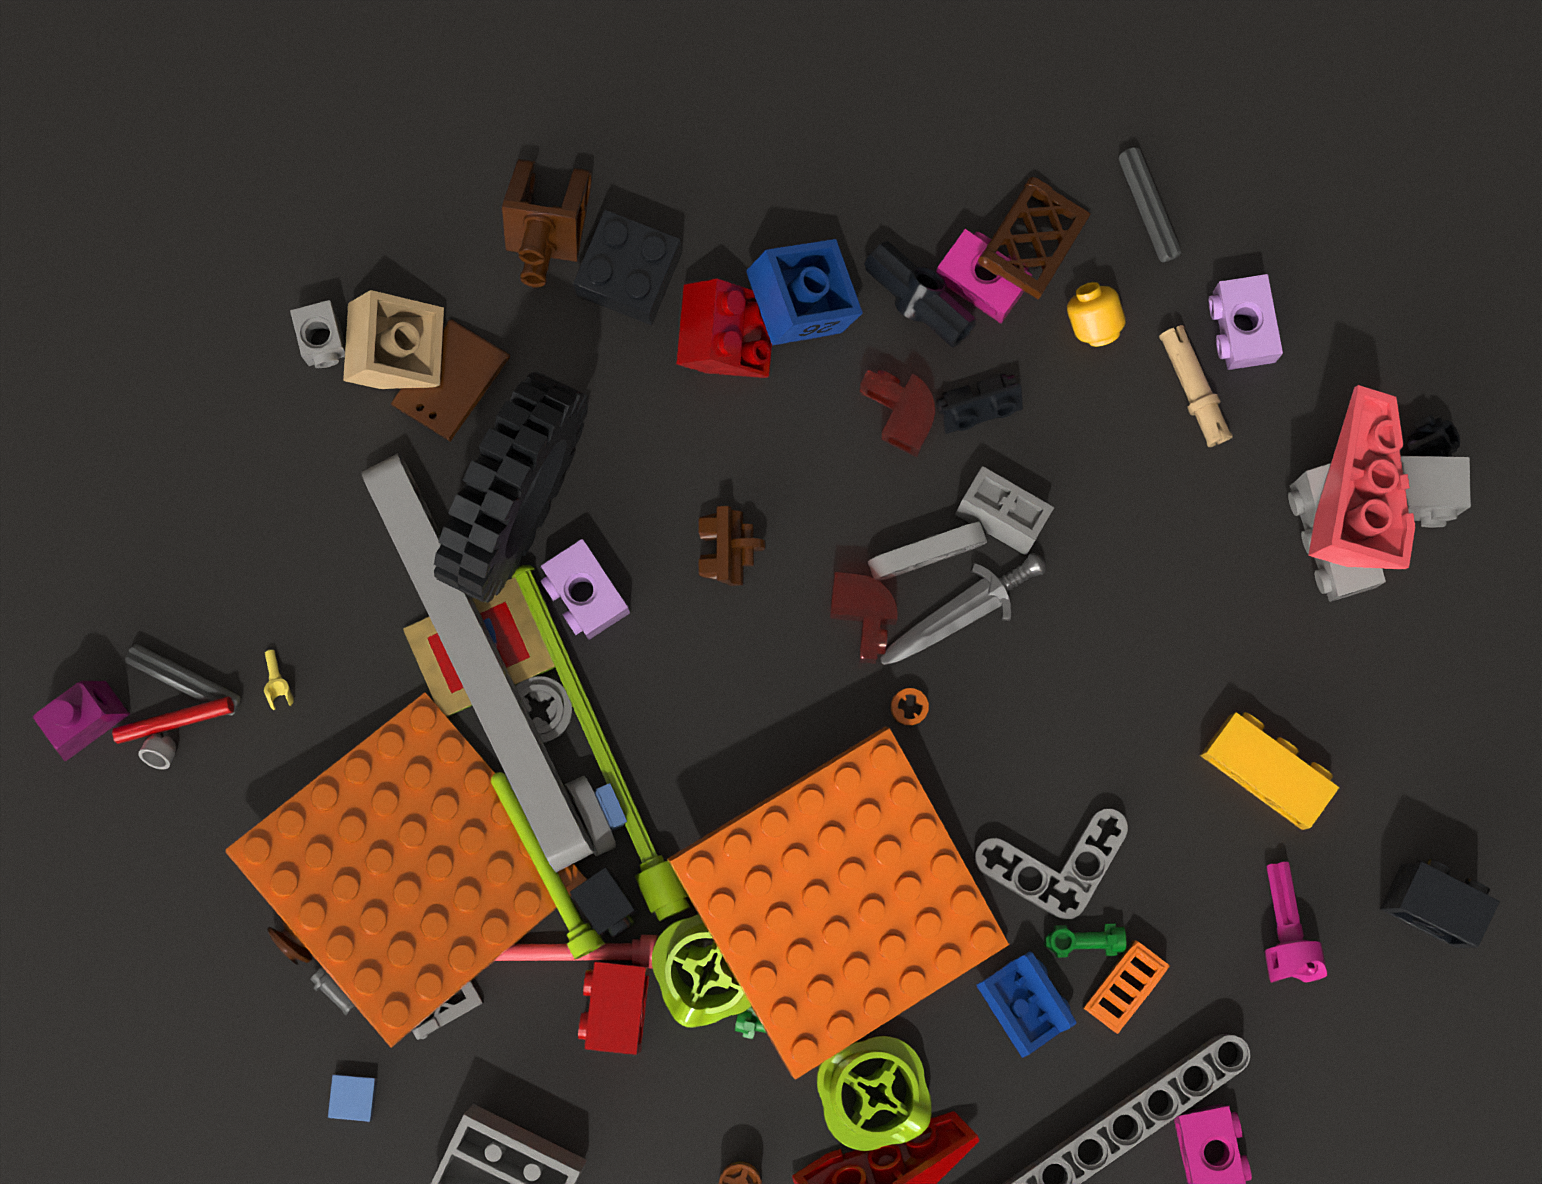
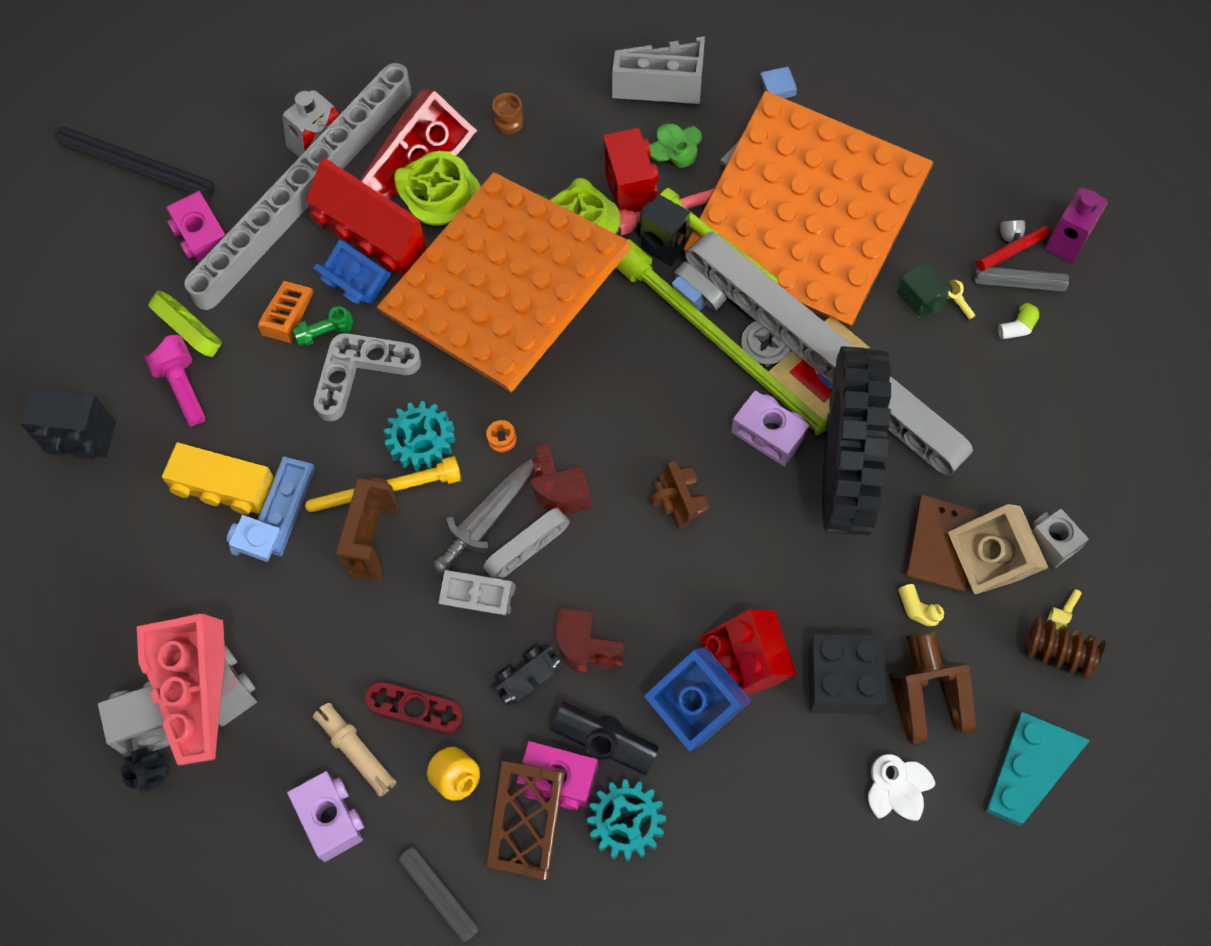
camera: 160 degrees right, 15 degrees down
(213, 615) = (1023, 325): none -> arm
(314, 701) = (923, 290): none -> clear green brick
(359, 247) = (1064, 616): none -> light yellow hand
(378, 210) = (1064, 647): none -> reddish brown piece
(475, 108) = (1031, 767): none -> teal wing
(513, 313) = (925, 614): none -> light yellow arm
(535, 1056) = (676, 145): none -> bright green plate
(625, 132) = (902, 791): none -> white plate
(912, 206) = (611, 828): none -> teal gear
(988, 1072) = (365, 218): none -> red slope
(992, 681) = (445, 471): none -> yellow piece
(1024, 751) = (424, 447): none -> teal gear
(1134, 595) = (354, 547): none -> reddish brown panel
(1147, 416) = (393, 692): none -> dark red beam
(1200, 714) = (286, 498): none -> medium blue tile
(1247, 673) = (253, 538): none -> light blue bracket
(1276, 1032) = (185, 323): none -> lime beam

